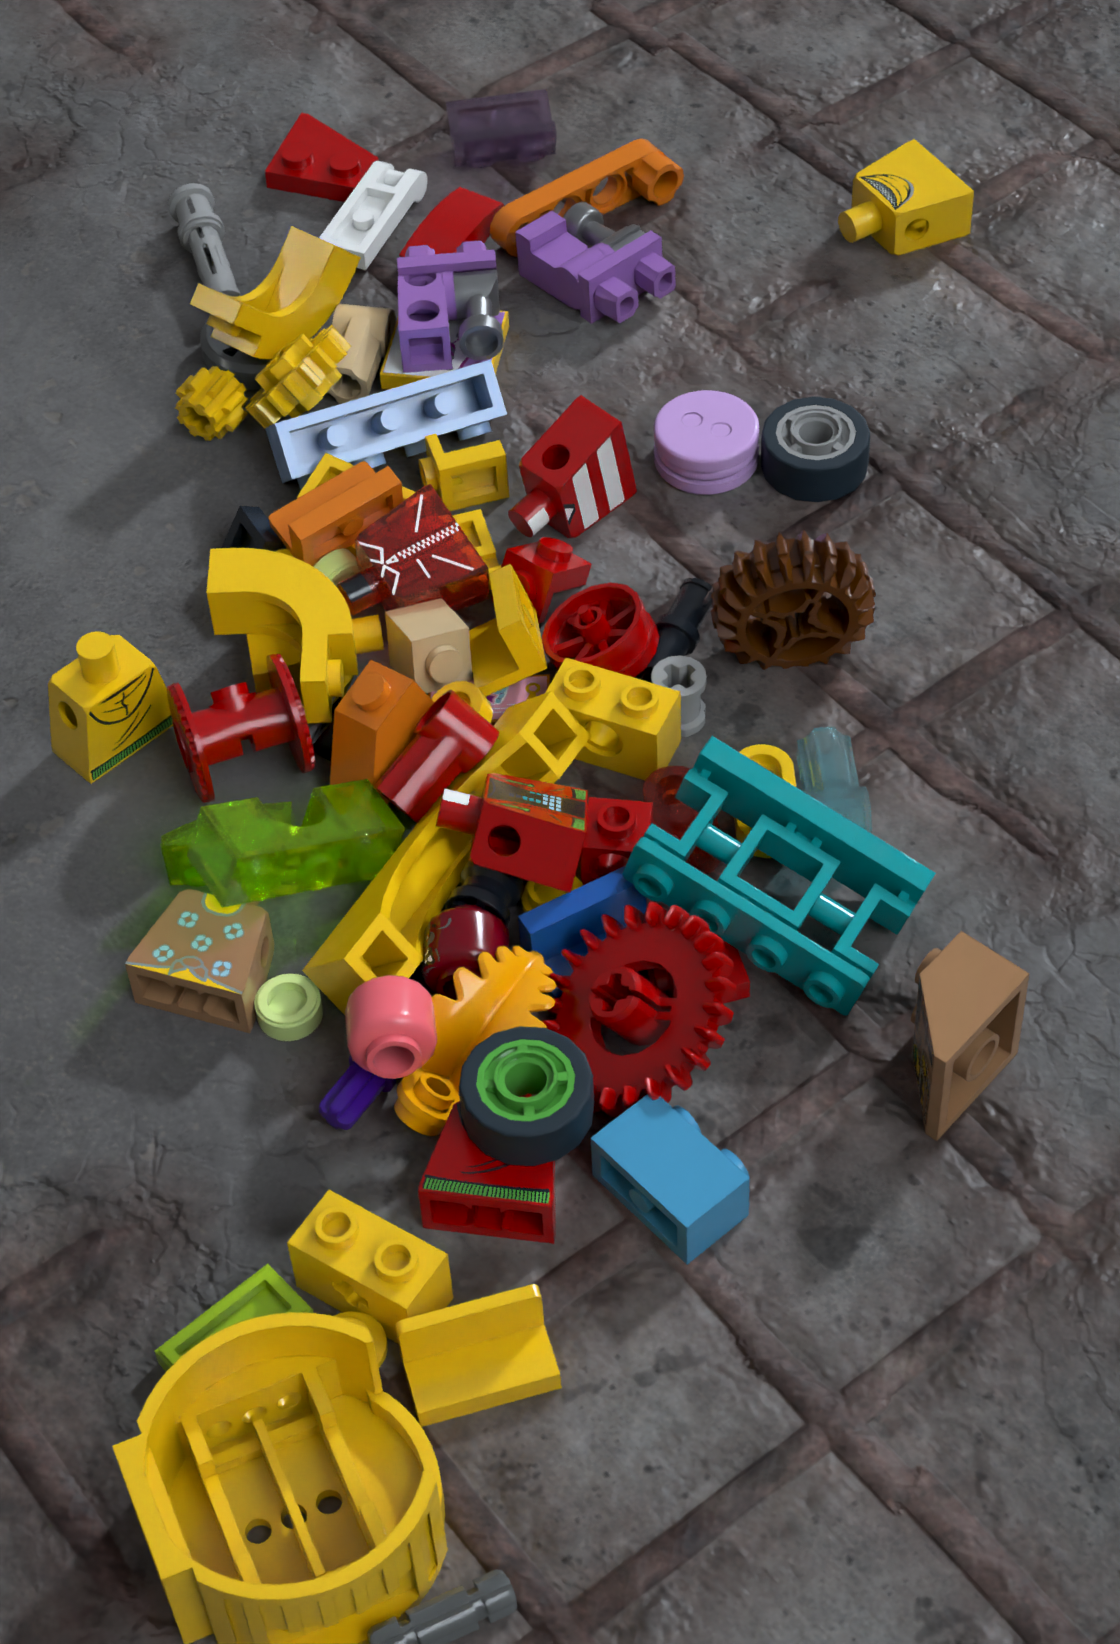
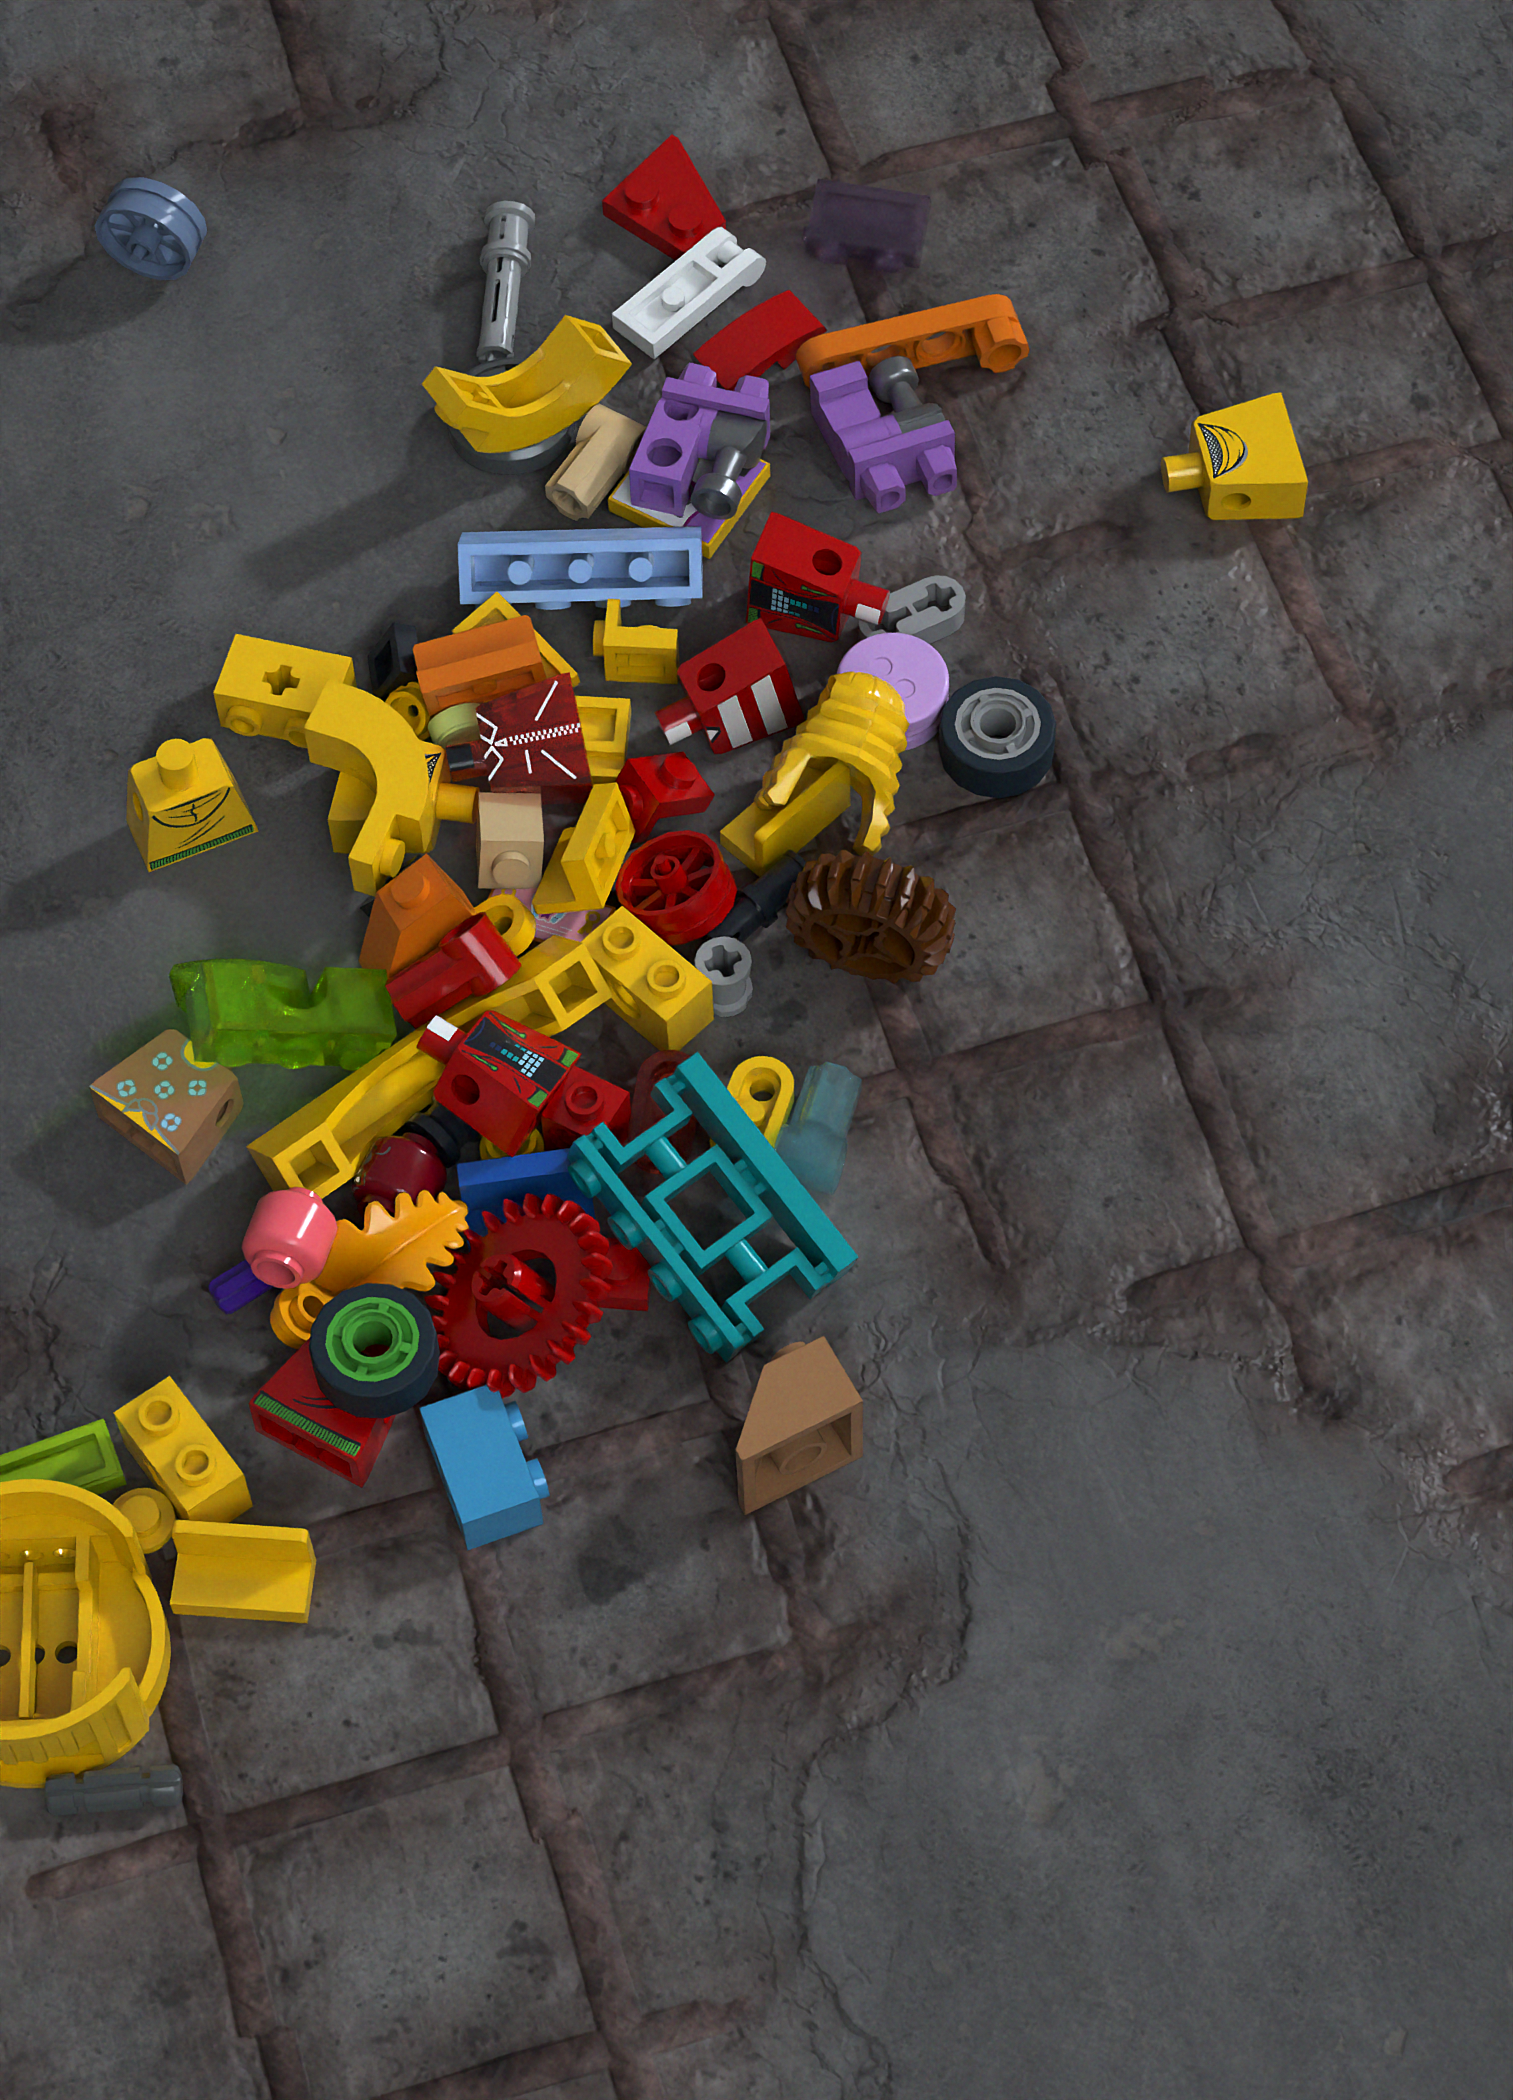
camera: 20 degrees right, 10 degrees up
(155, 595) = (274, 687): none -> yellow brick
(211, 403) = (425, 481): yellow gear -> none
(237, 715) = (289, 862): red hose -> none
(288, 1007) = (227, 1173): yellowish green tile -> none
(298, 376) = (514, 485): yellow gear -> none
(600, 366) = (809, 582): none -> red torso
(669, 555) = (763, 836): none -> yellow panel
(704, 475) = (865, 728): none -> yellow hair
(715, 374) = (910, 614): none -> light grey beam

